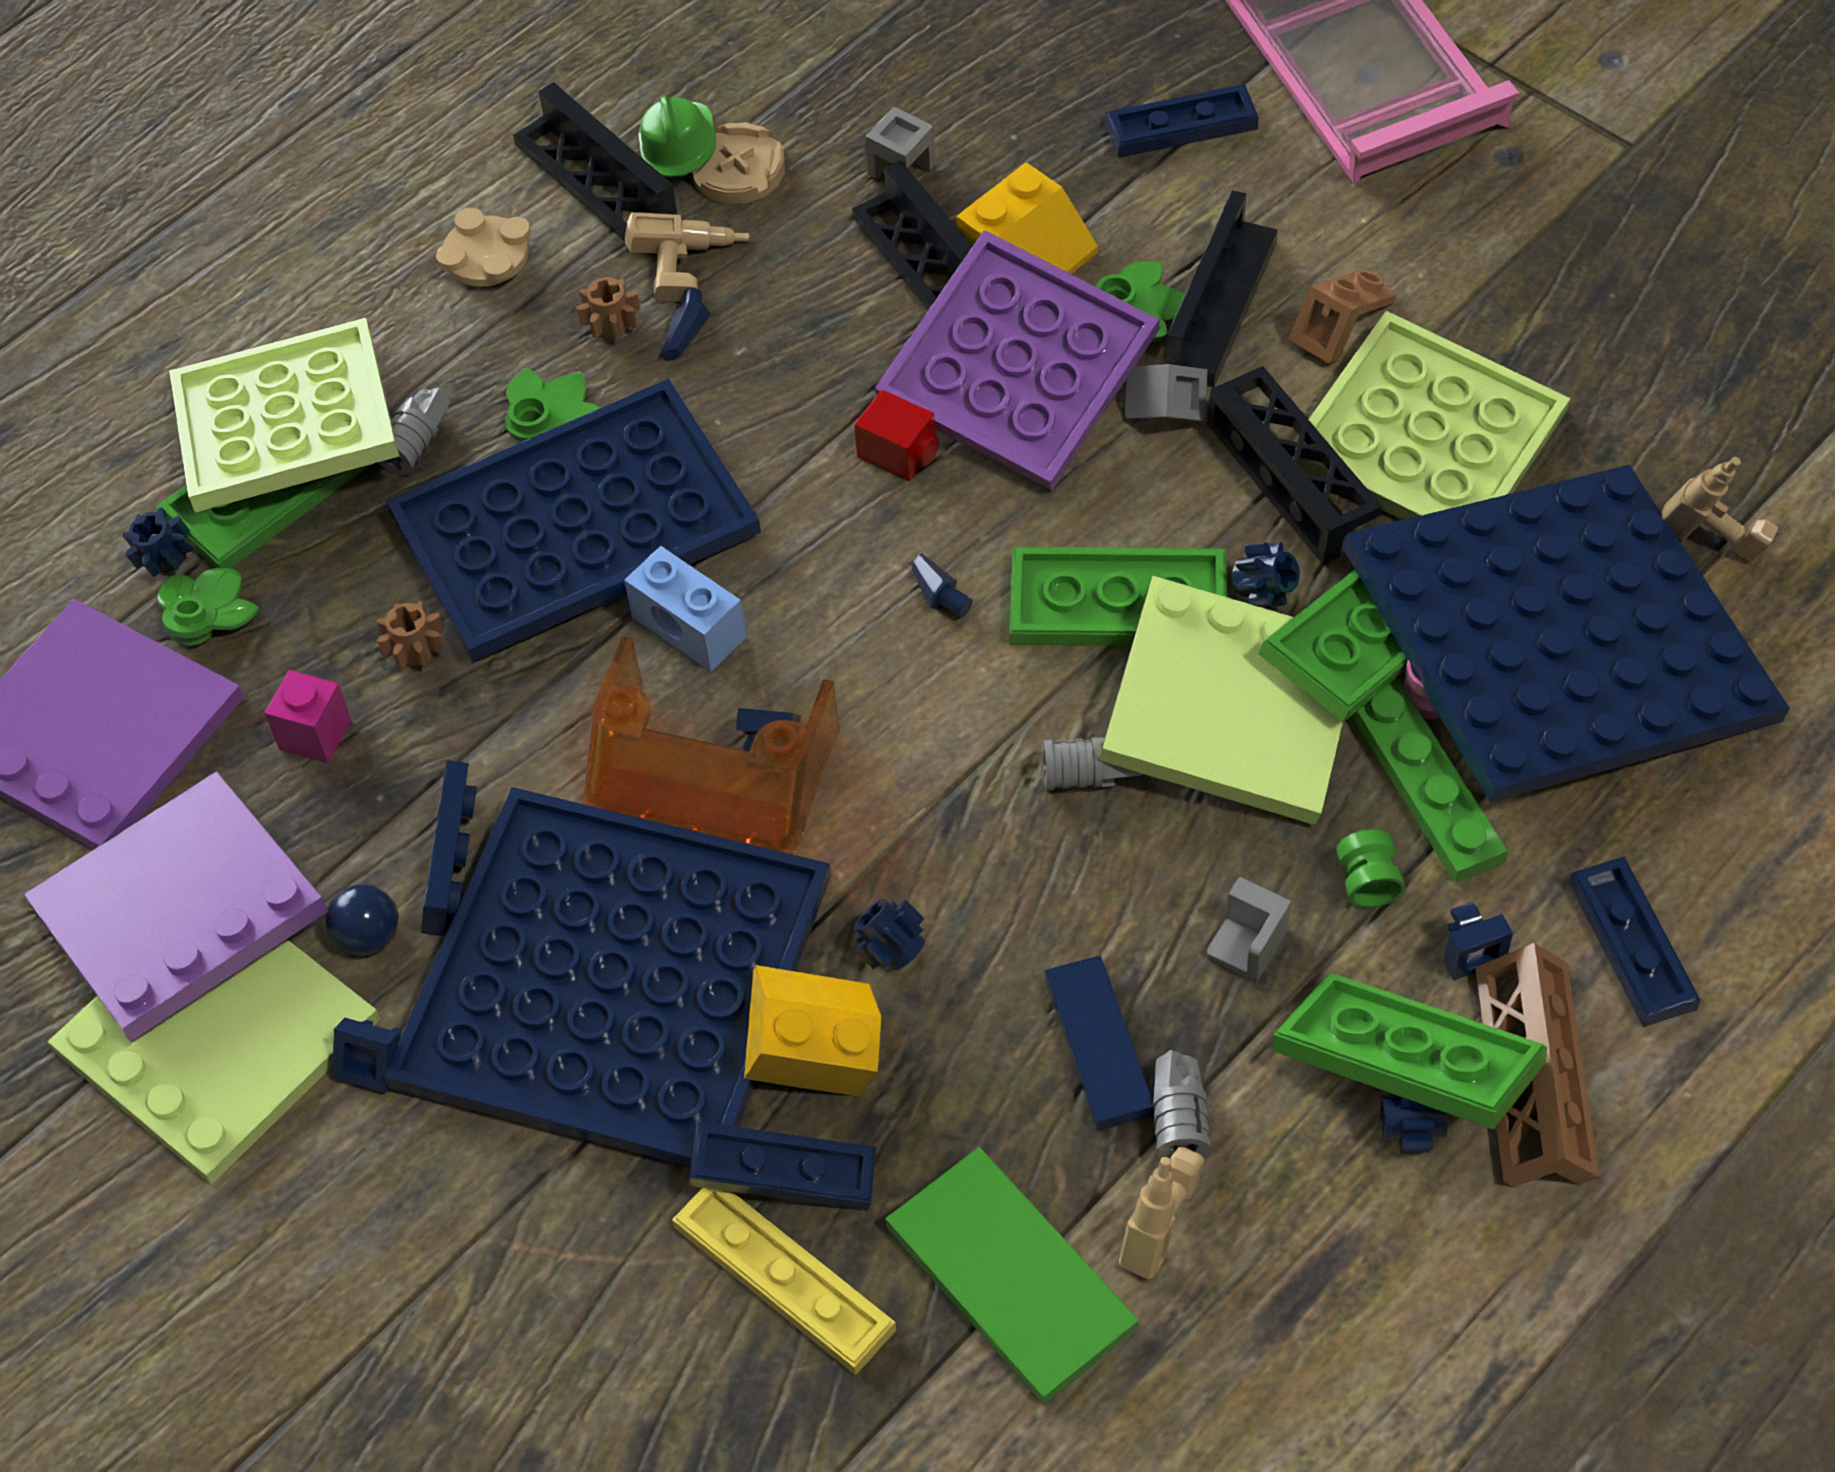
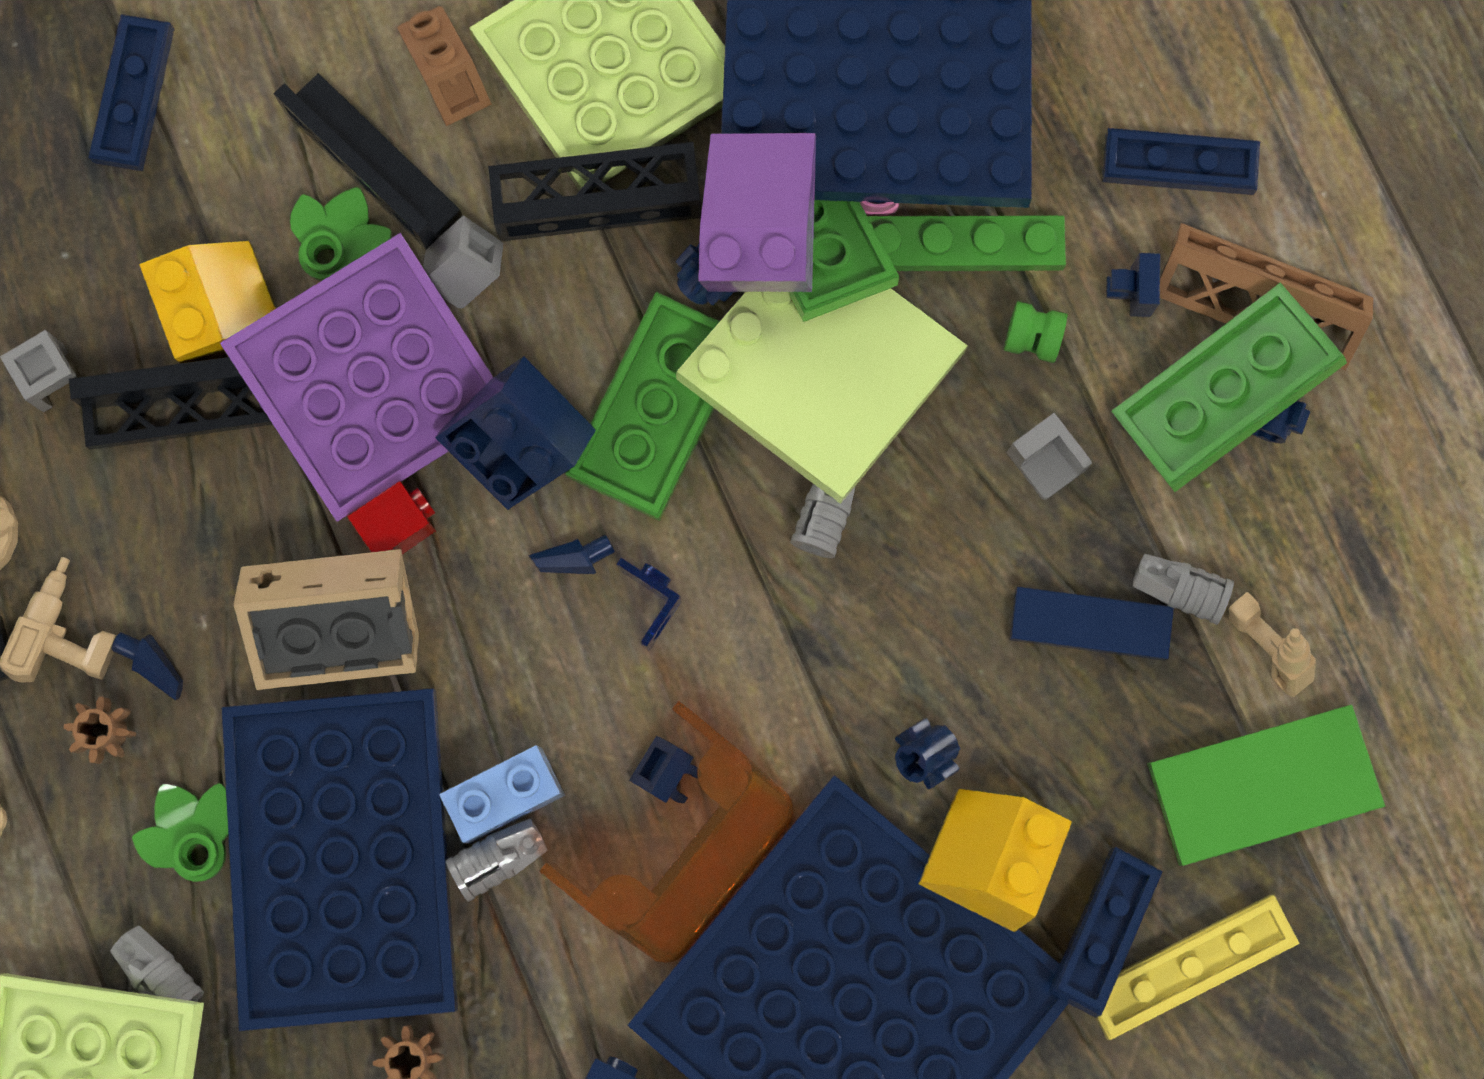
camera: 70 degrees left, 25 degrees up
(649, 642) = (496, 858): none -> light grey hinge
(781, 409) = (327, 619): none -> piece
(929, 664) = (656, 583): none -> clear blue bracket
(1027, 483) = (517, 434): none -> dark blue slope
(1331, 559) = (758, 213): none -> medium lavender slope

